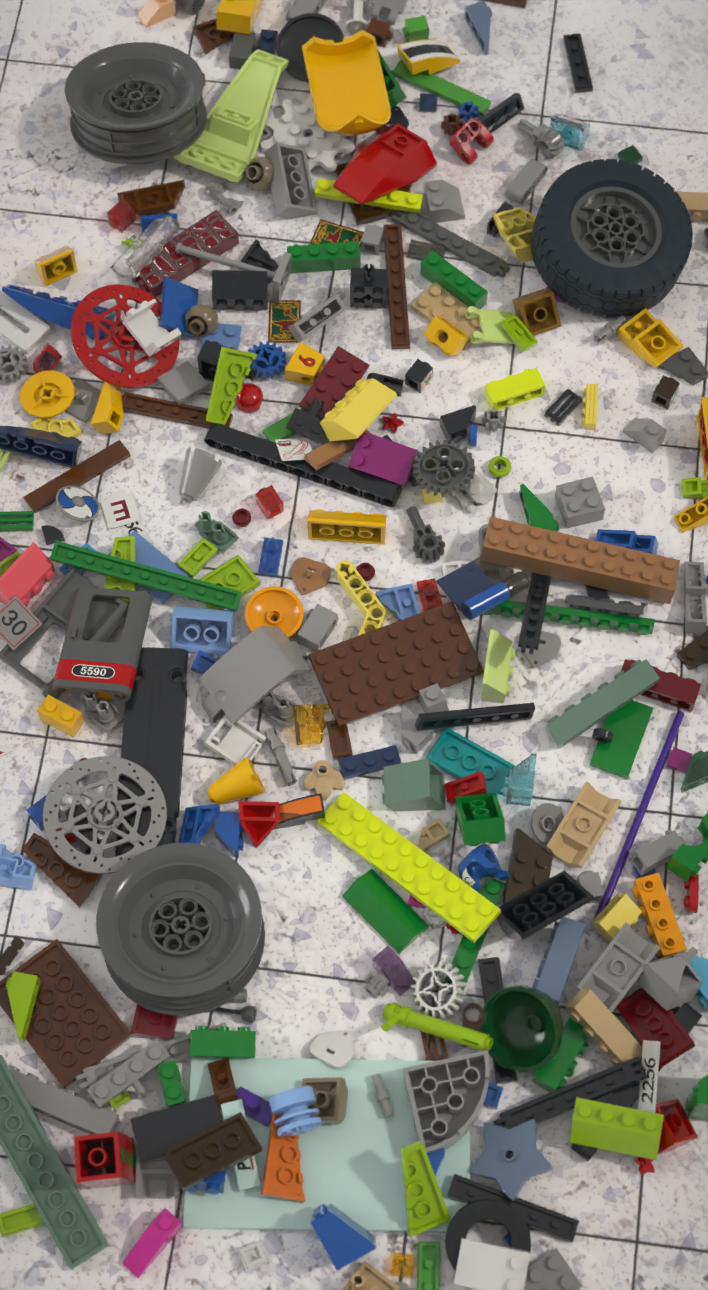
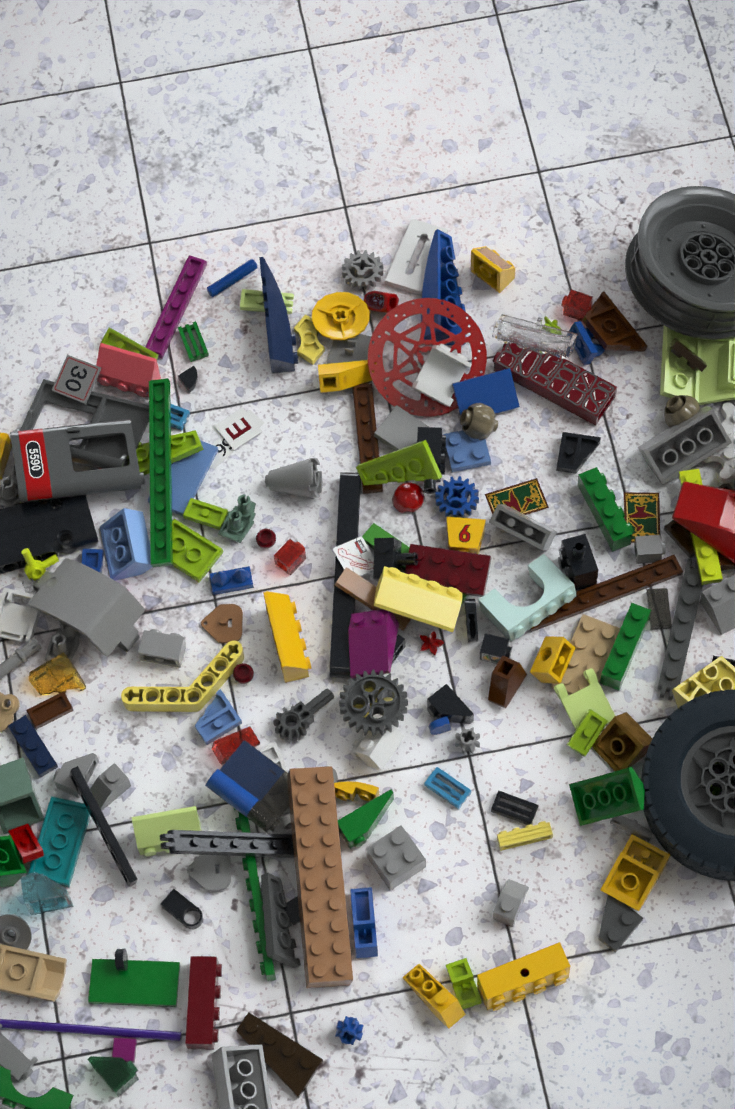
camera: 75 degrees right, 0 degrees up
(77, 475) = (261, 377): reddish brown tile -> none
(77, 503) = (227, 386): shield -> none
(193, 712) = (35, 568): none -> neon yellow piece
(207, 151) = (693, 360): none -> dark brown plate
(229, 204) = (647, 380): light grey piece -> none
(240, 290) = (526, 444): black slope -> none
(272, 603) = (162, 590): light orange dish -> none
(280, 276) = (555, 474): light grey tile -> none
(384, 312) = (516, 620): none -> light aqua arch
(395, 663) = (141, 732): reddish brown plate -> none
(453, 375) = (505, 681): none -> reddish brown slope
(499, 460) = (415, 773): lime piece -> none
(512, 508) = (348, 791): none -> yellow slope
(514, 389) = (514, 750): neon yellow brick -> none
(516, 458) = (462, 798): none -> dark azure tile
(564, 683) = (178, 906): none -> black piece
(589, 327) = (607, 796): none -> green slope
(602, 703) = (156, 948): sand green brick -> none
(665, 392) = (572, 909): dark brown brick -> none
(694, 597) = (322, 1012): light grey slope -> none

